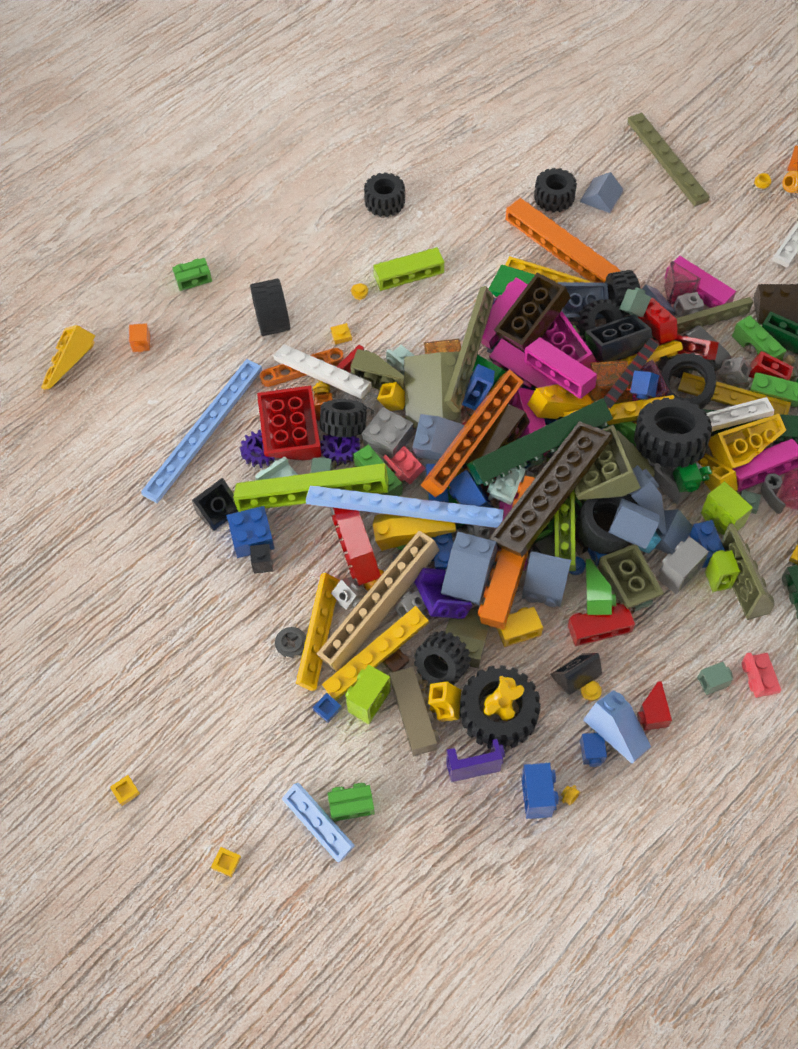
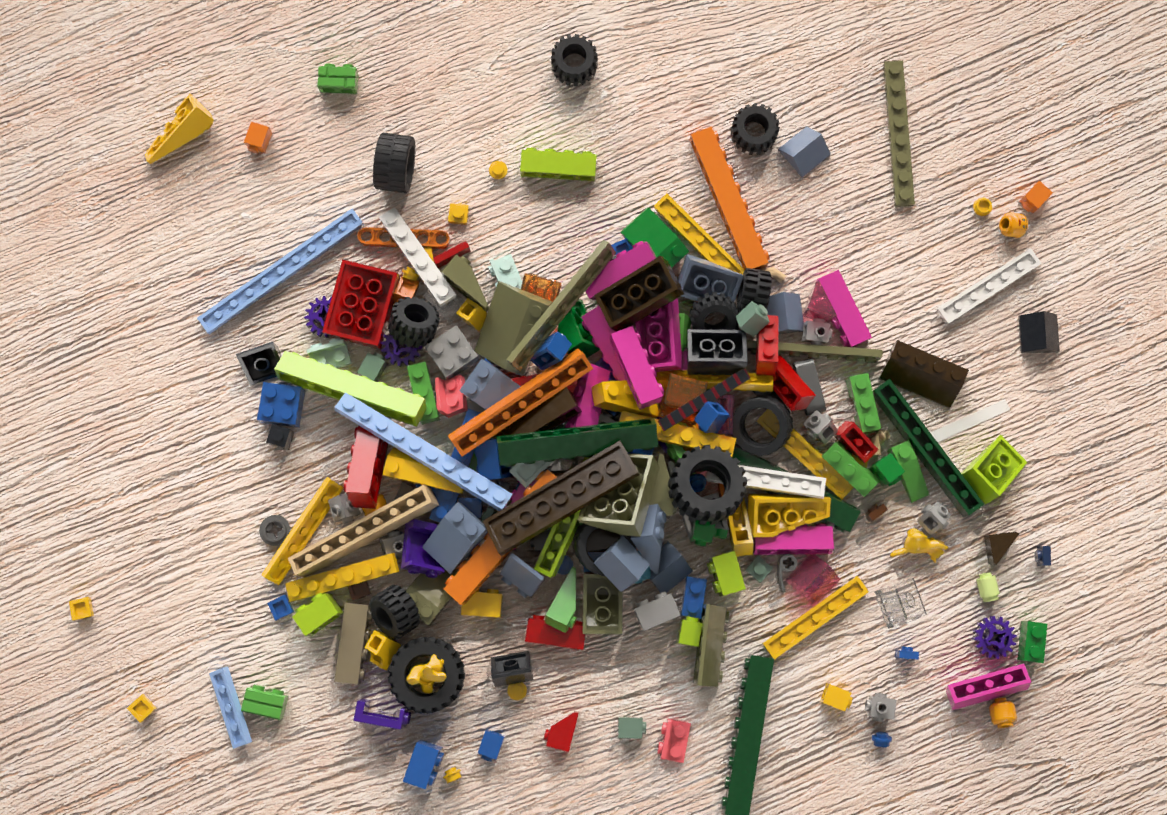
camera: 20 degrees right, 20 degrees up
(618, 725) = (520, 738): medium blue slope -> none

